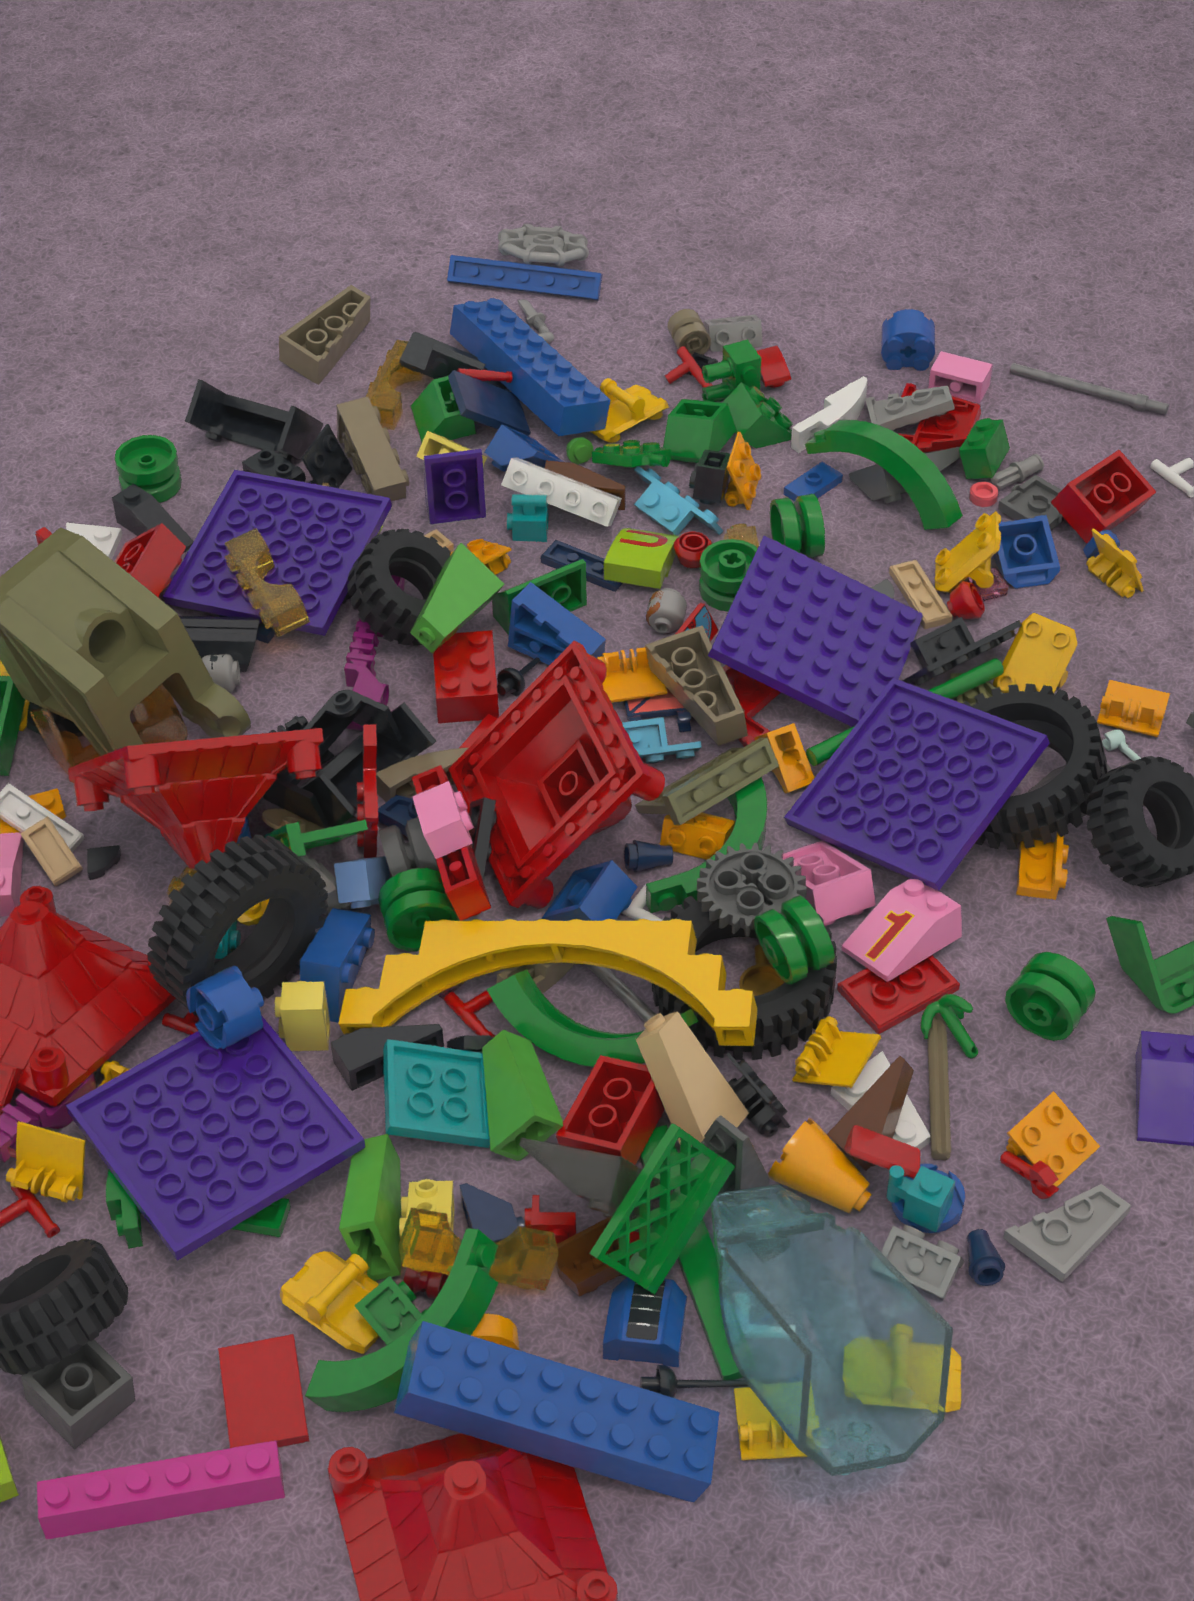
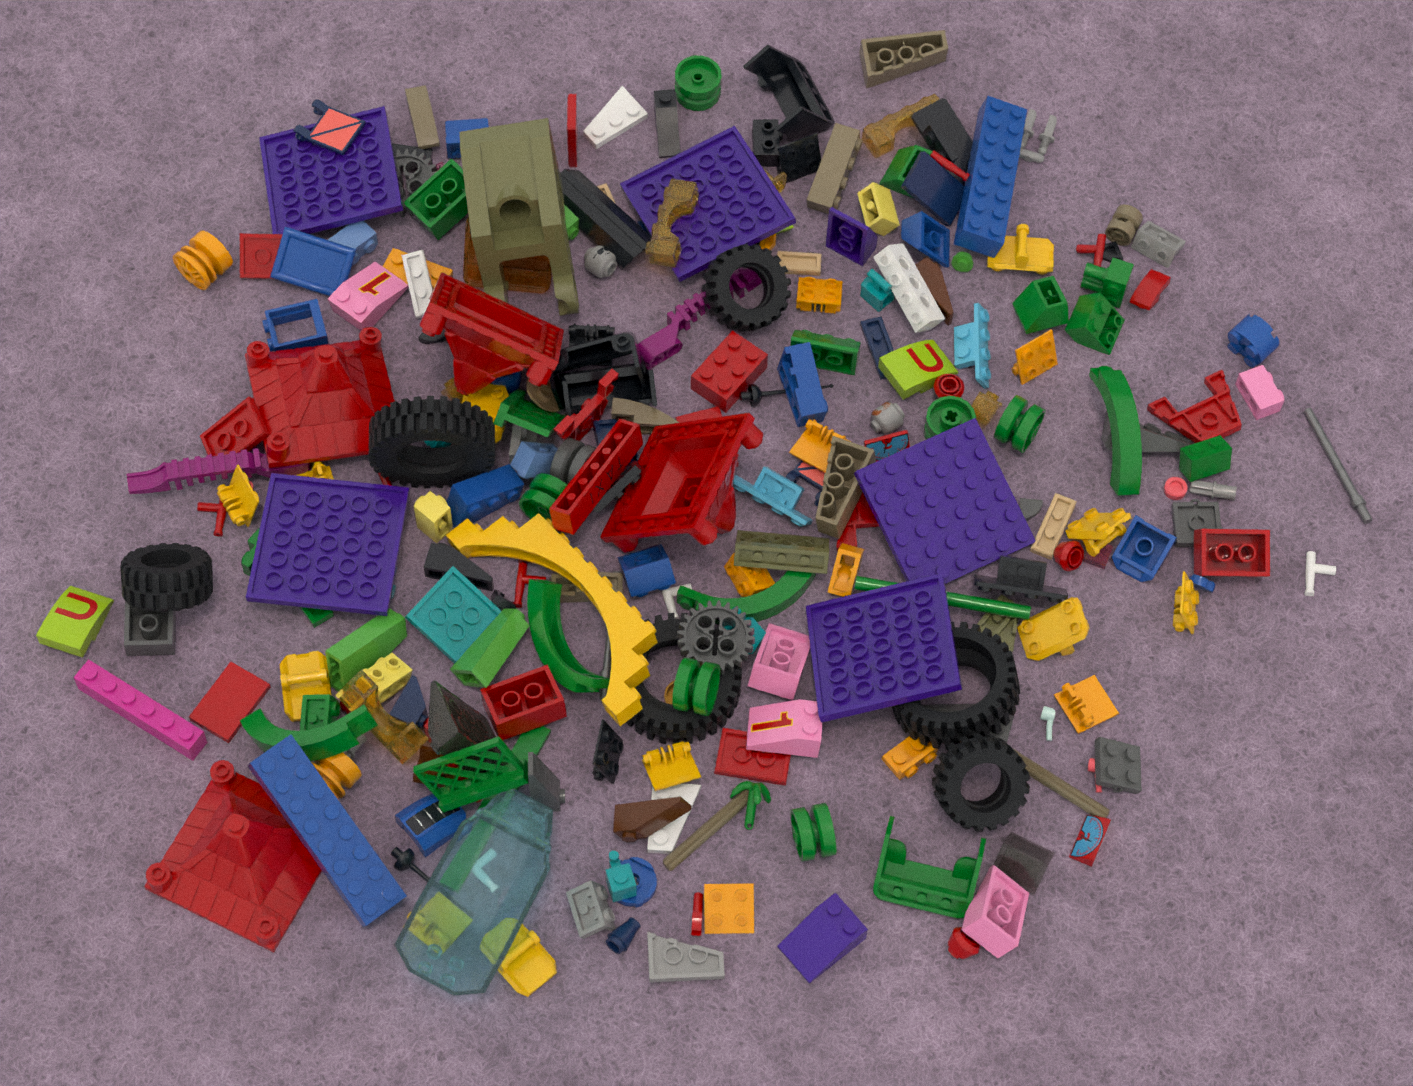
camera: 40 degrees right, 15 degrees up
(51, 851) = (410, 309): tan tile -> none
(152, 557) = (619, 159): red brick -> none
(225, 1008) = (384, 484): blue brick -> none
(443, 819) = (591, 463): bright pink brick -> none
(456, 598) = (759, 319): bright green slope -> none
(524, 277) = (1071, 100): blue plate -> none
(543, 244) = (1097, 80): light grey plate -> none
(632, 454) = (983, 292): green plate -> none
(646, 855) = (707, 567): dark blue cone -> none
(687, 1077) = (568, 722): tan slope -> none
(710, 477) = (1003, 346): black brick -> none
(815, 481) = (1078, 397): blue plate -> none
(820, 1170) = (592, 820): light orange cone -> none
(841, 405) = (1153, 359): white slope -> none
(882, 1150) = (624, 839): red slope -> none
(901, 411) = (1191, 389): light grey wing -> none

